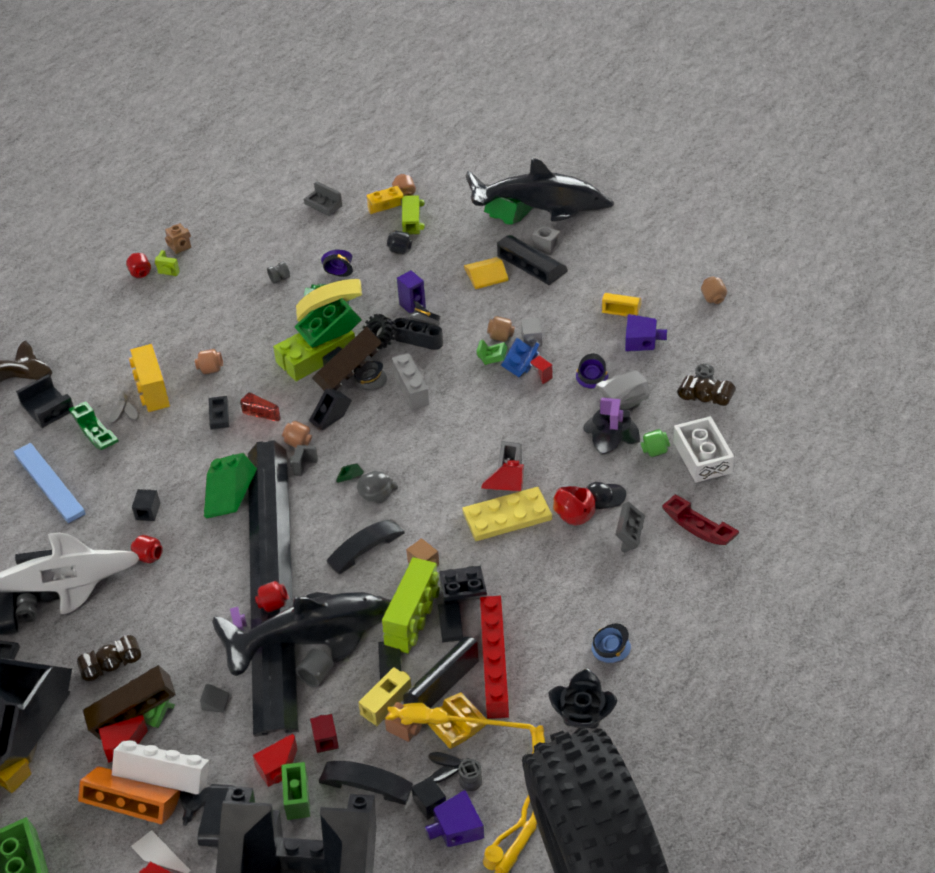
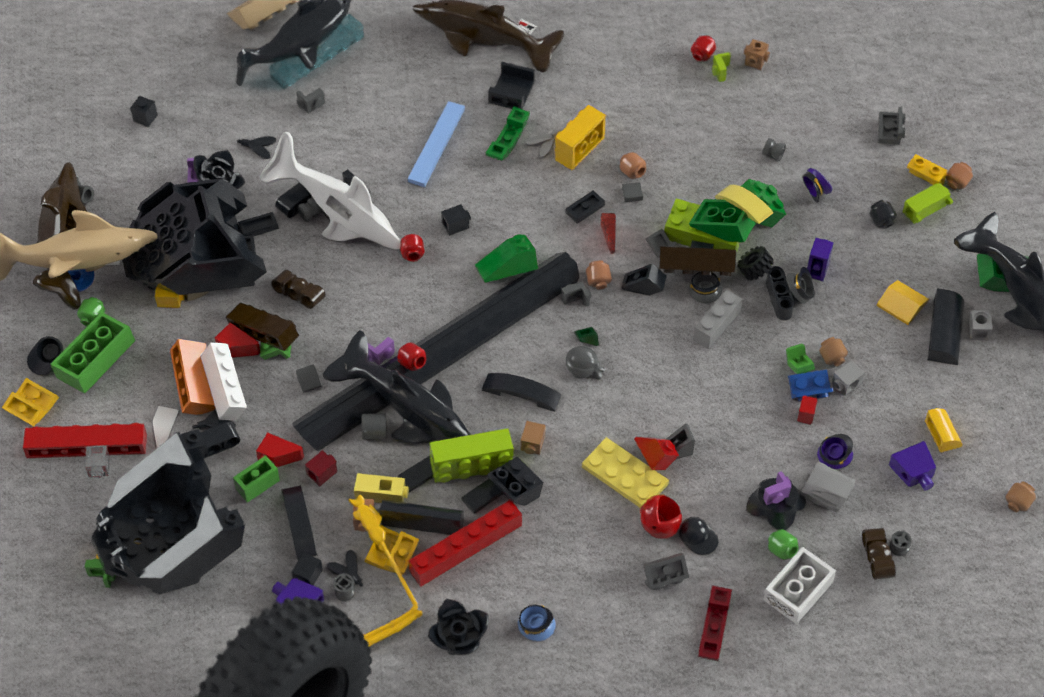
camera: 55 degrees right, 10 degrees up
(232, 377) = (632, 192): none -> dark grey tile
(302, 382) = (659, 239): none -> dark grey bracket

